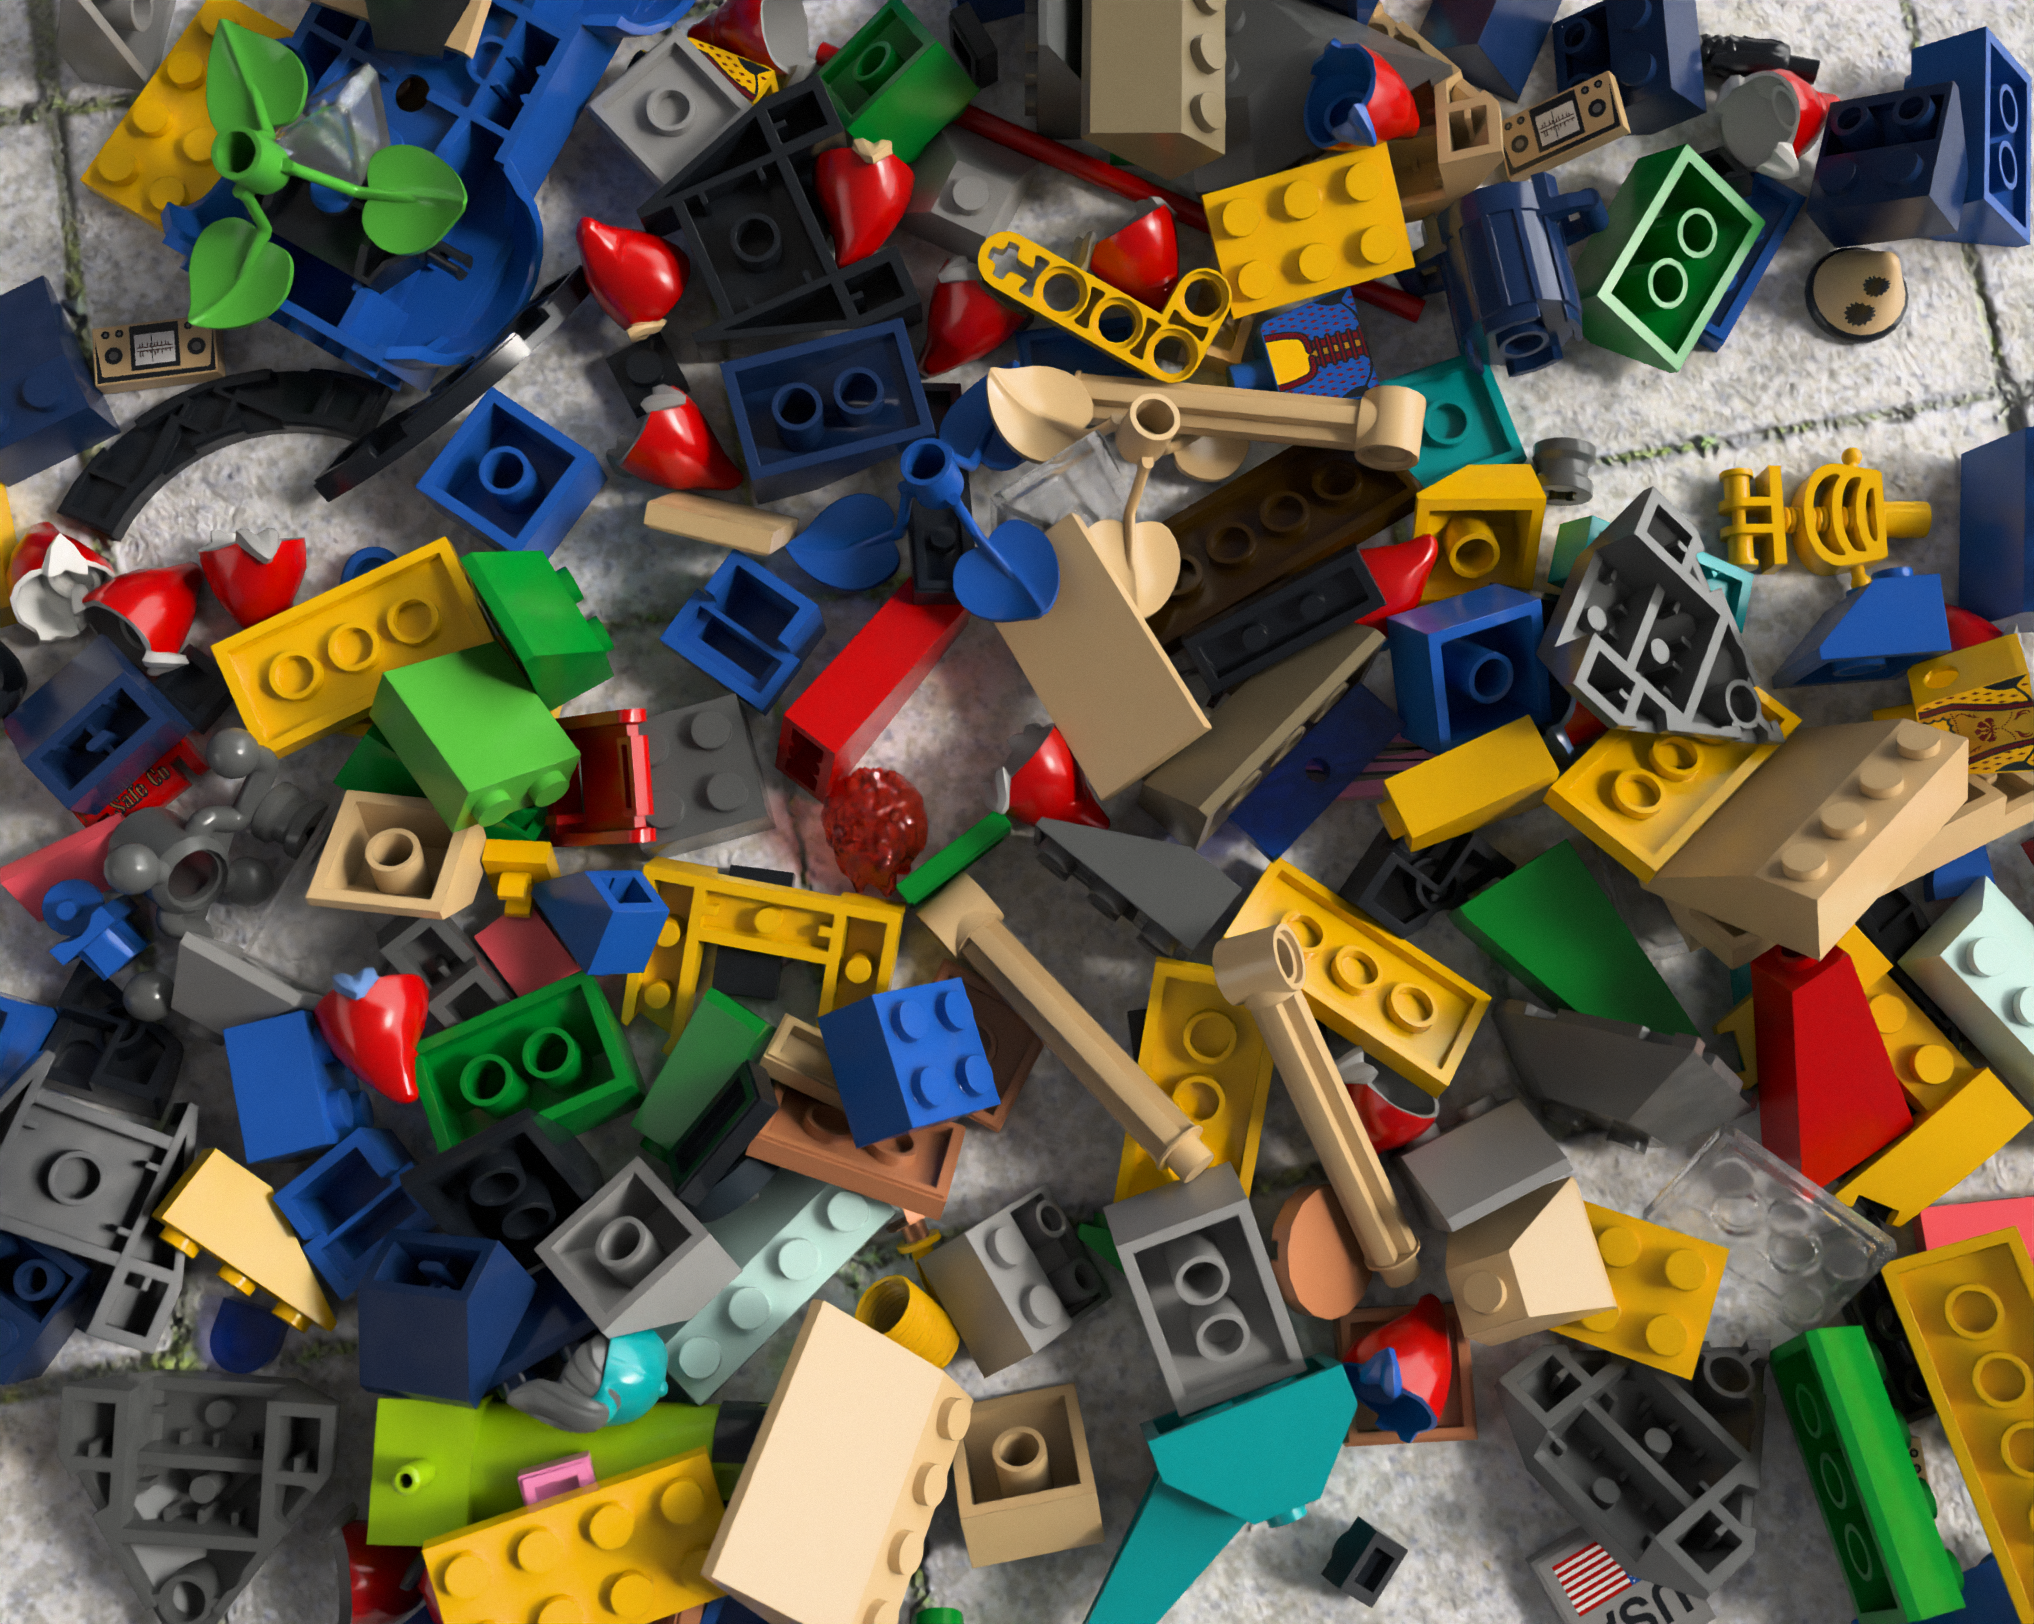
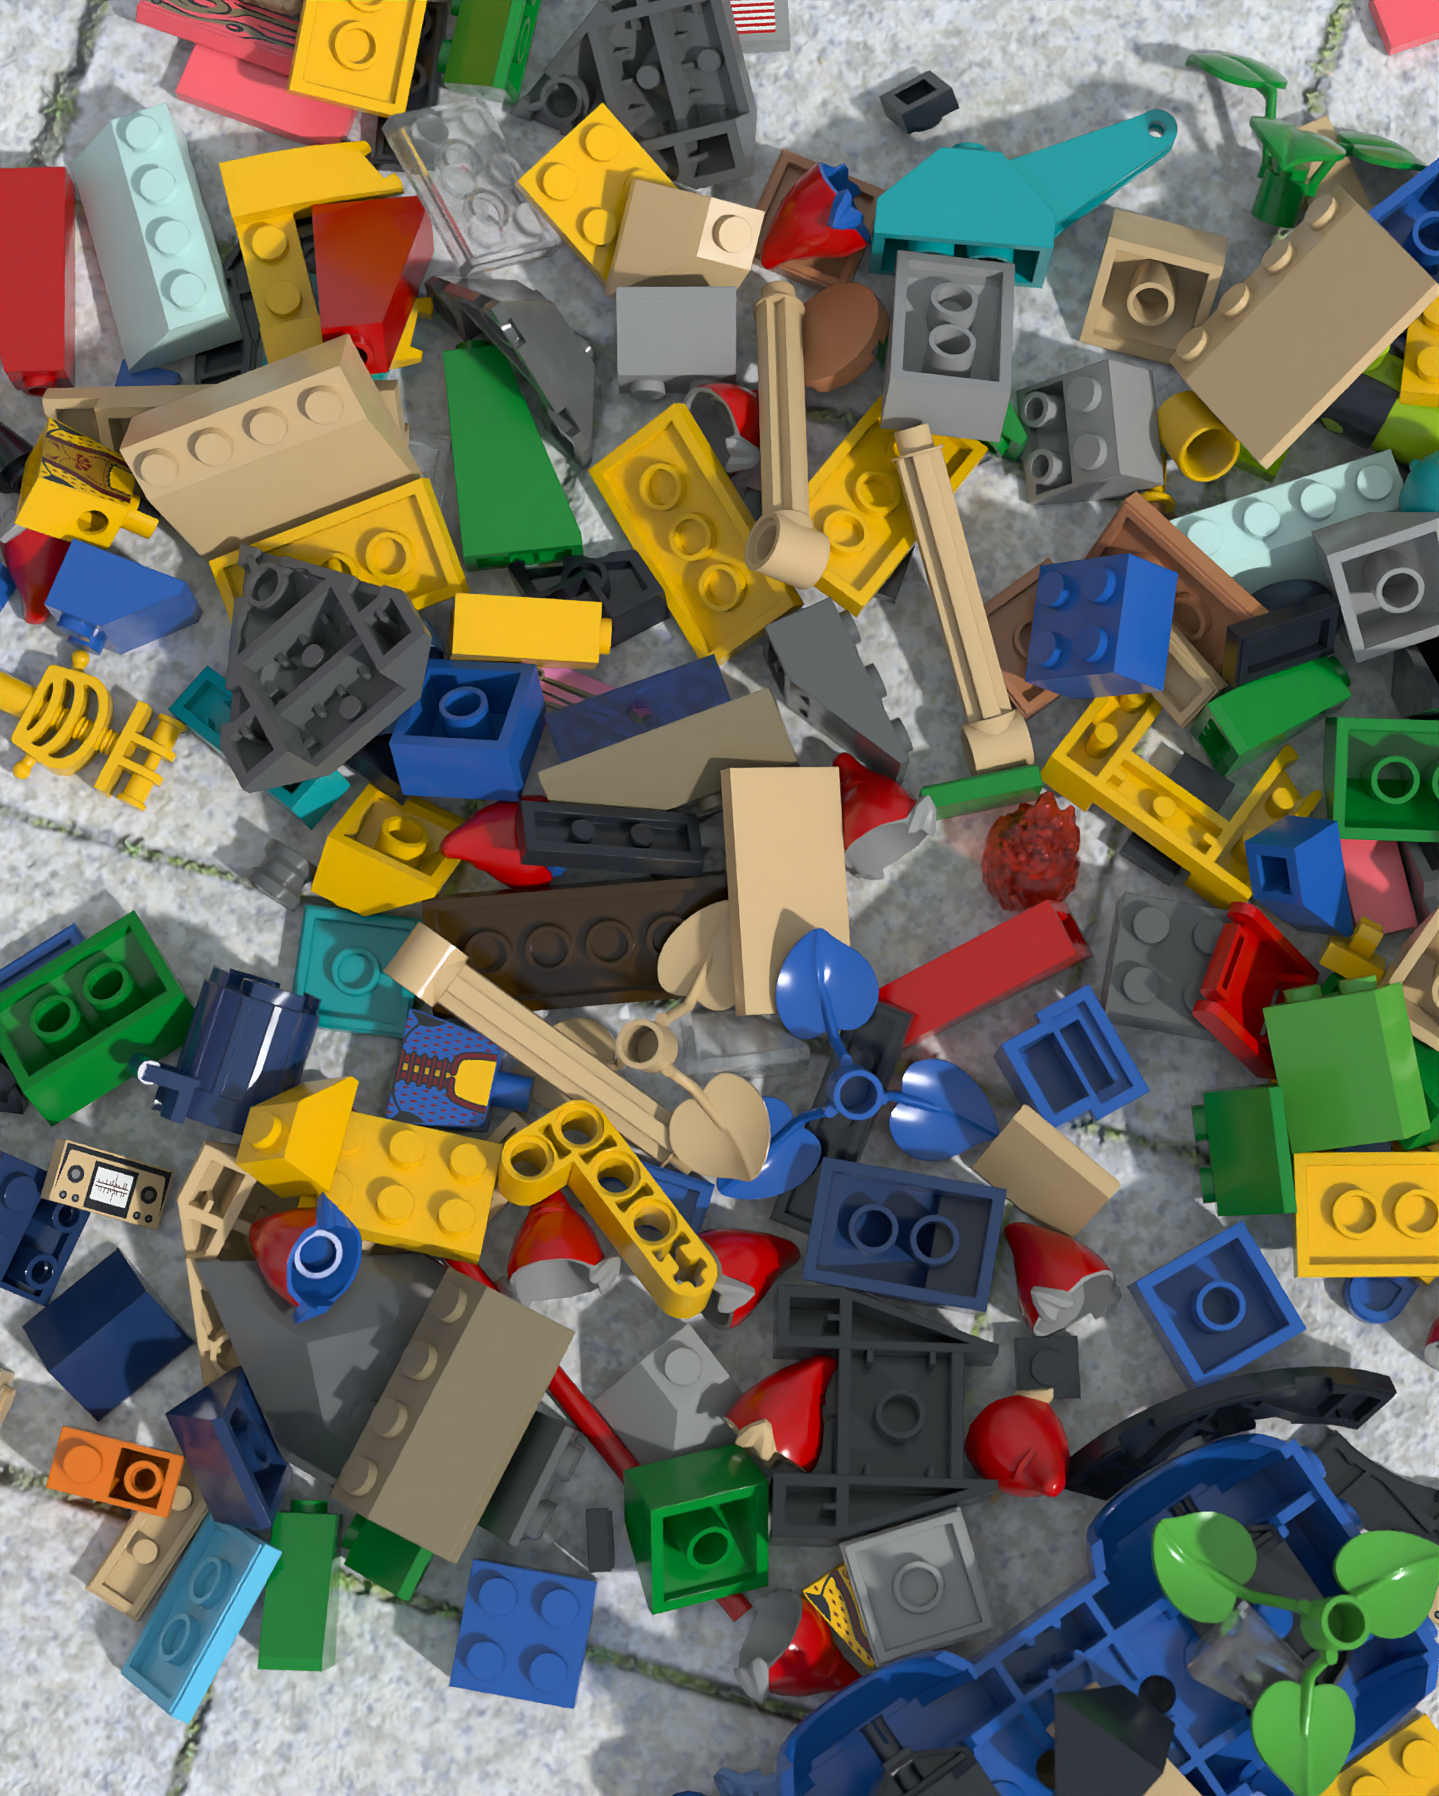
camera: 155 degrees left, 0 degrees up
(1424, 211) = (298, 1137): none -> yellow slope

